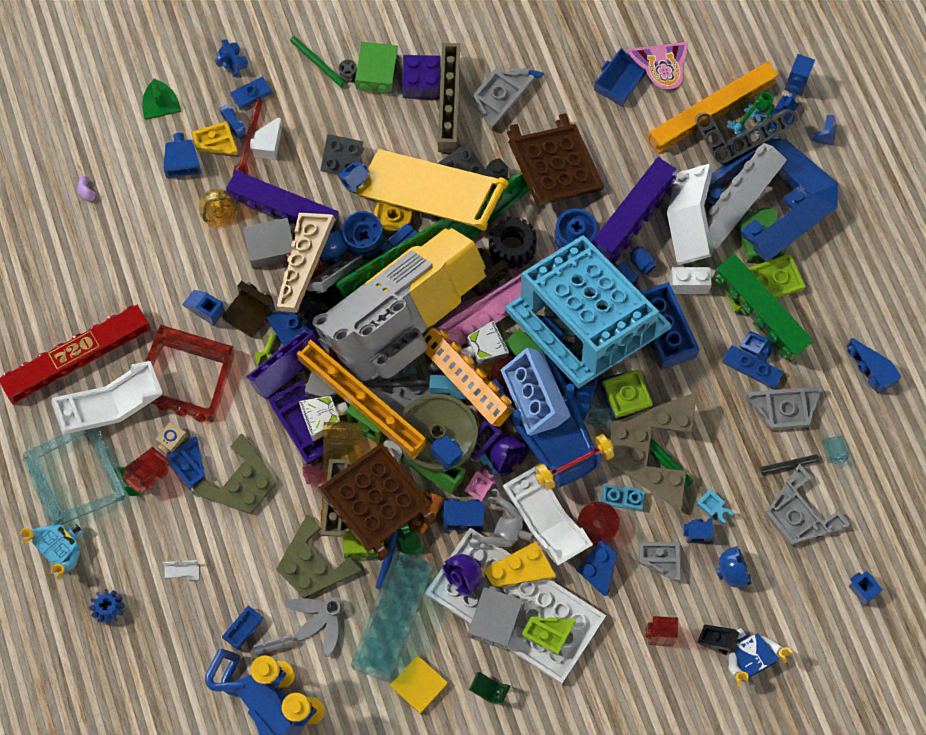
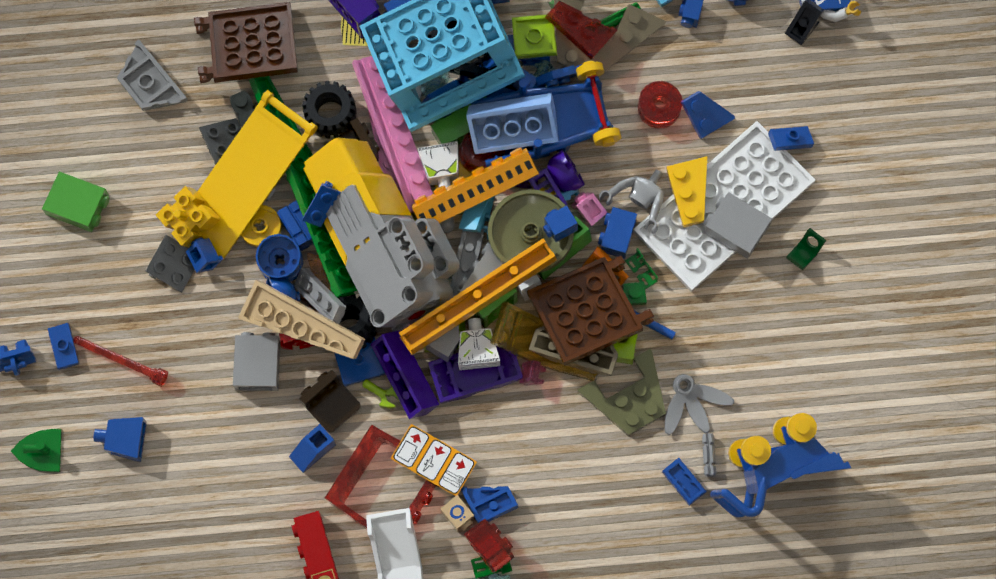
camera: 70 degrees left, 5 degrees up
(83, 190) = (132, 555): lavender arm -> none
(191, 571) = (606, 525): white piece -> none
(214, 406) = (433, 460): none -> sticker
(215, 139) = (111, 396): yellow wing -> none
(217, 207) = (196, 409): clear yellow cylinder -> none
(229, 115) = (86, 375): blue plate -> none
(246, 486) = (528, 446): olive wing -> none
(267, 140) = (131, 339): white slope -> none
(274, 200) = (208, 344): dark purple brick -> none
(318, 62) = (45, 265): green bar -> none
(347, 66) = (66, 230): dark grey wheel -> none
(383, 154) = (187, 216): none -> yellow brick
(392, 616) = (710, 326): clear light blue brick -> none
(412, 247) = (320, 204): none -> blue hinge
(418, 684) = (783, 319): yellow tile -> none
(421, 76) = (102, 156): dark purple brick -> none
(443, 540) = (637, 264): none -> green piece
(449, 97) = (138, 132): dark tan brick -> none
(463, 572) = (684, 243): dark purple cylinder -> none
(526, 72) = (128, 48): piece -> none
(546, 518) = (645, 151): white windscreen -> none
(548, 632) = (764, 177): lime wing -> none
(573, 225) = (336, 43): blue wheel -> none
(591, 419) = (559, 76): none -> blue wing
(597, 651) = (791, 138): none -> blue plate
(622, 498) = (636, 75): medium azure slope -> none
(644, 433) = (581, 30): none -> clear red wing
(661, 558) = (709, 53): light grey wing -> none
(662, 631) = (787, 70): clear red brick -> none

